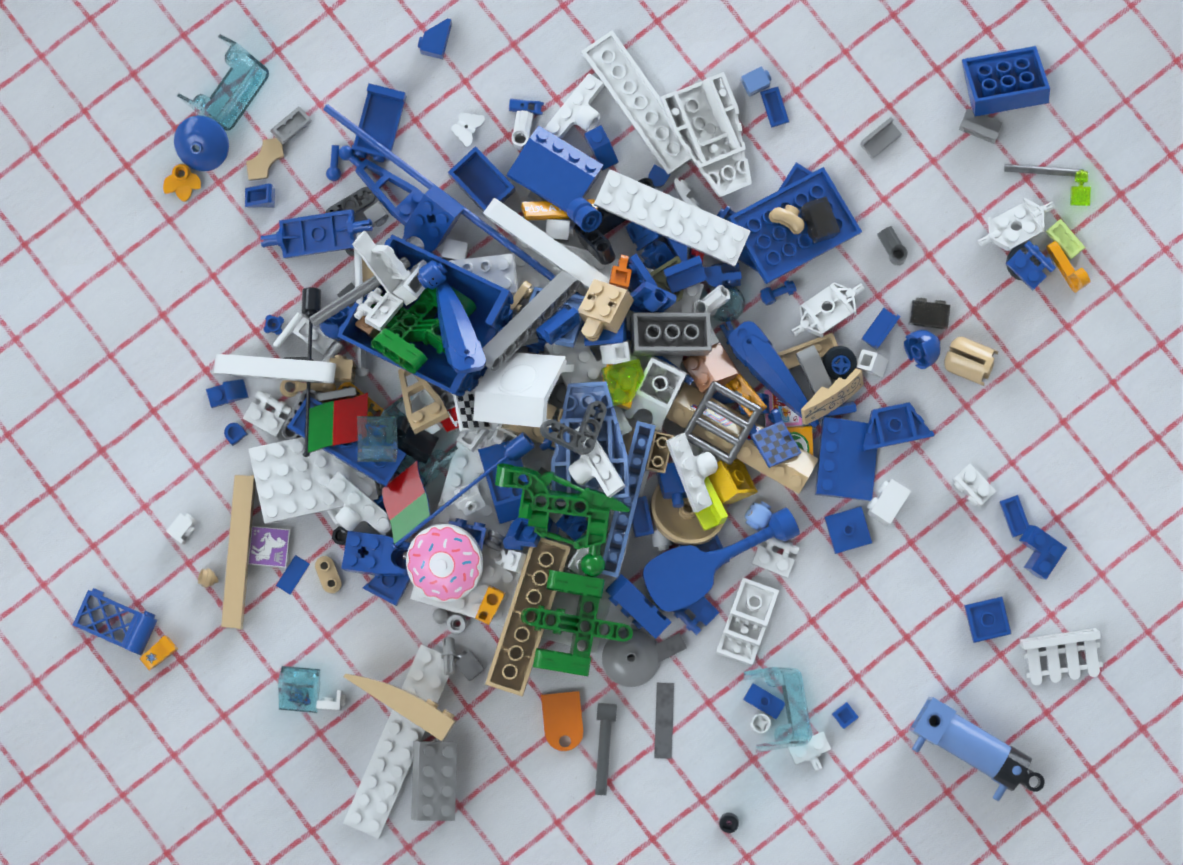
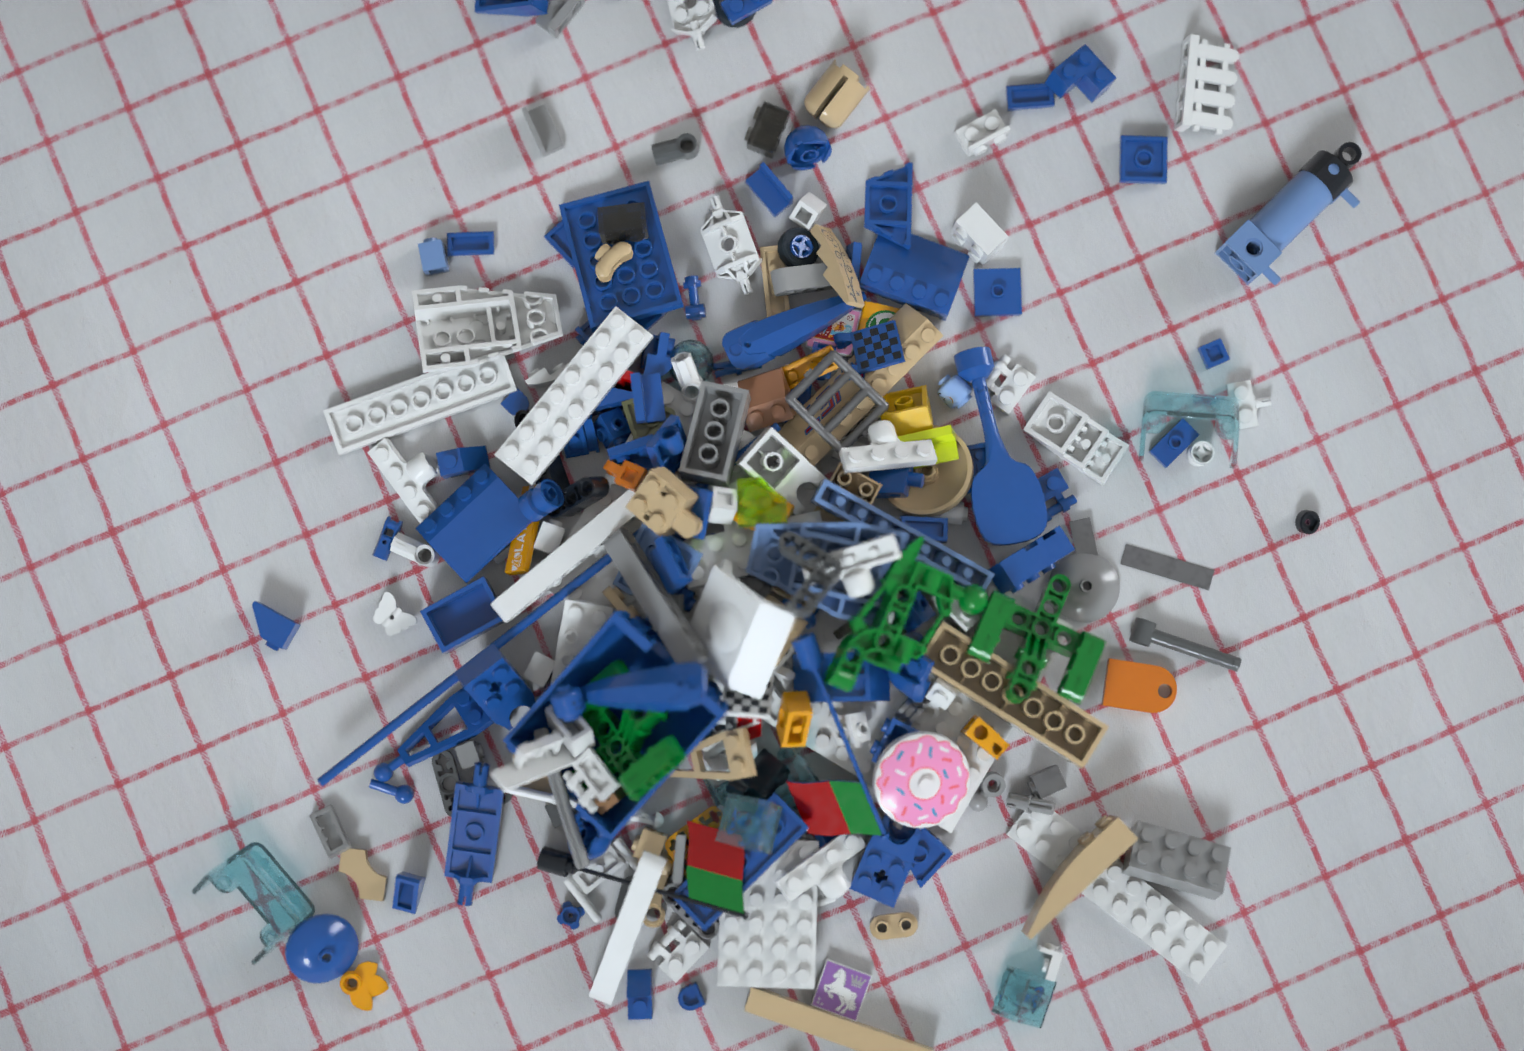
camera: 80 degrees left, 0 degrees up
(292, 574) = (882, 969): blue sticker -> none
(340, 535) = (851, 899): black tile -> none
(379, 120) = (354, 720): blue panel -> none
(465, 451) = (794, 719): none -> light orange brick

